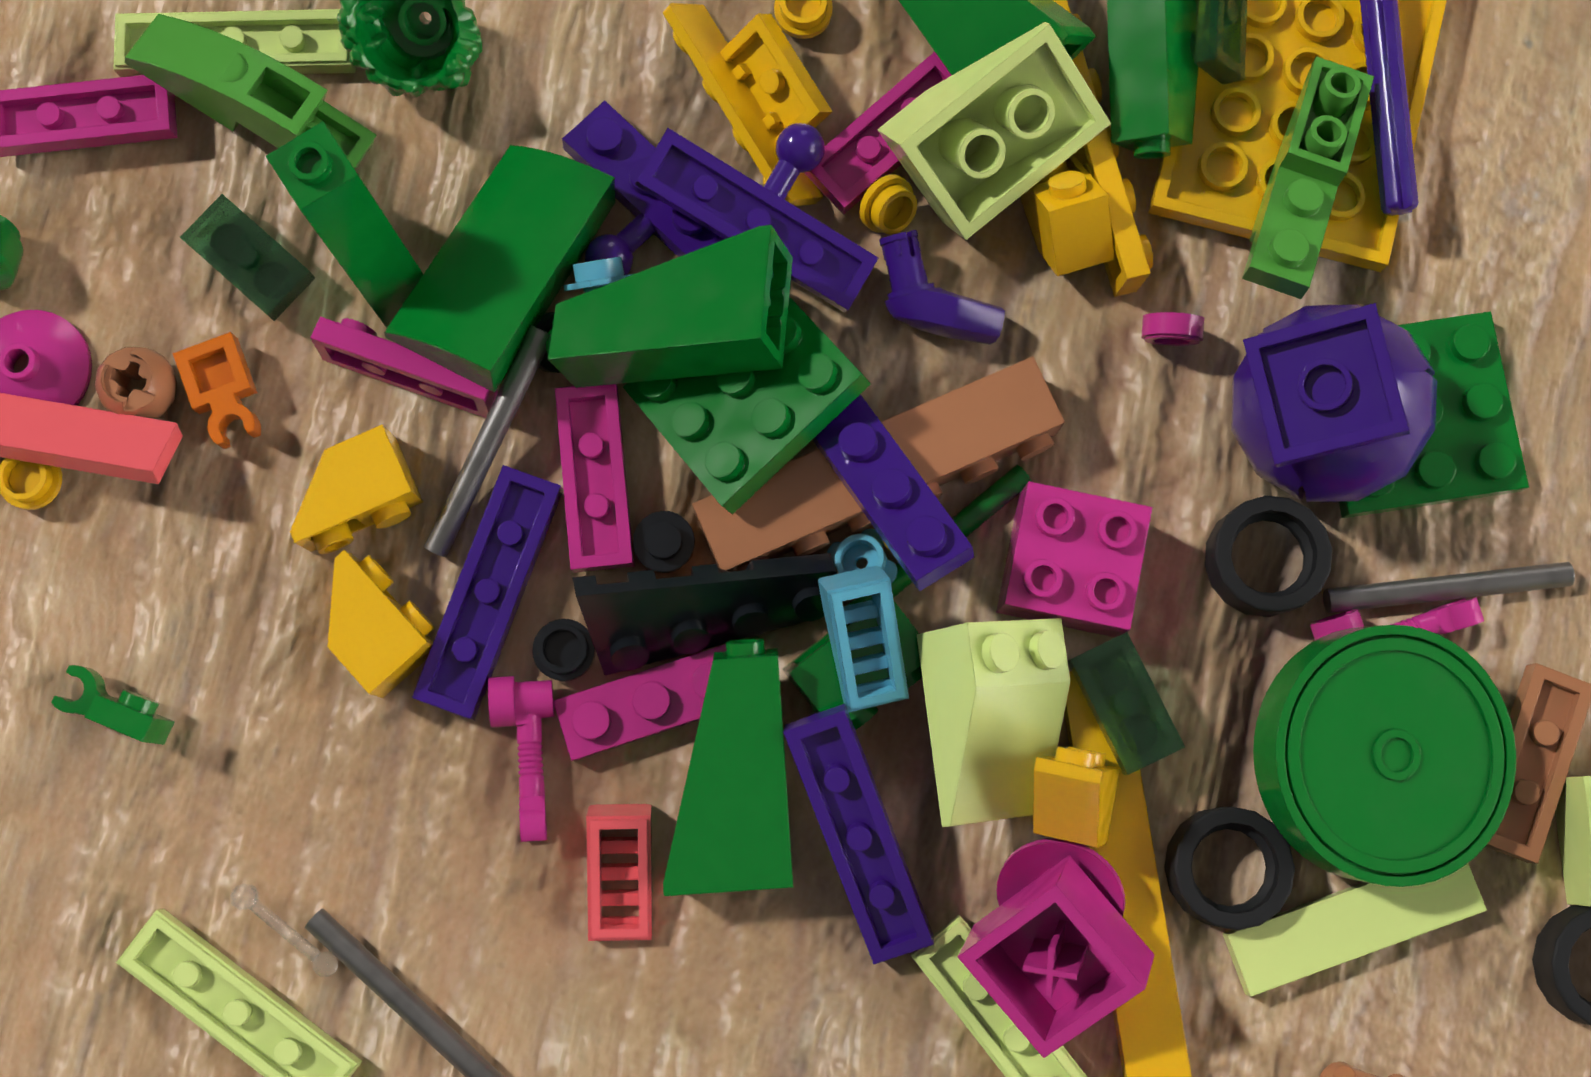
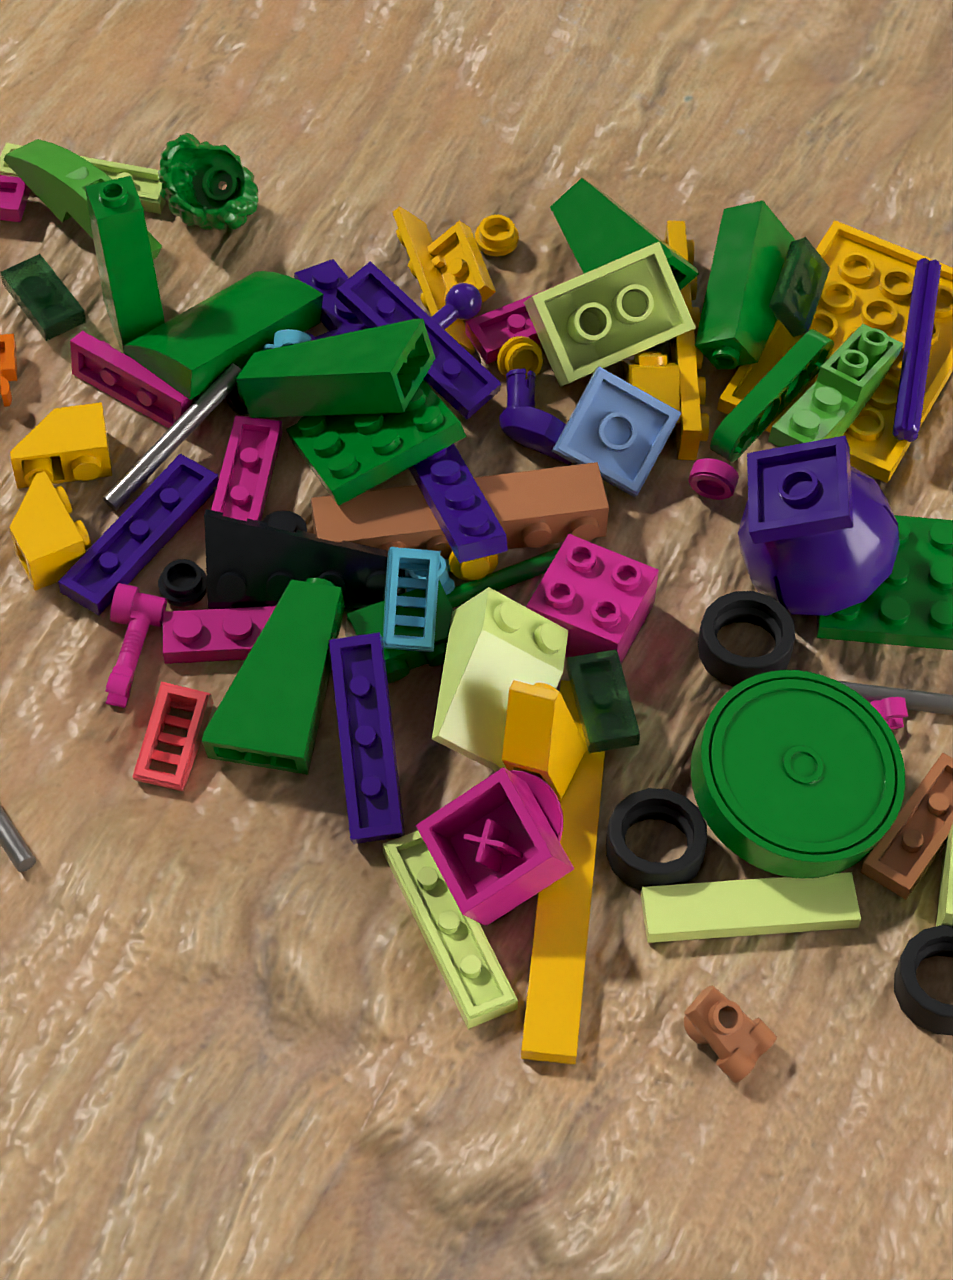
camera: 15 degrees right, 25 degrees down
(1043, 299) = (618, 430): none -> light blue tile
(1226, 196) = (771, 395): none -> green beam

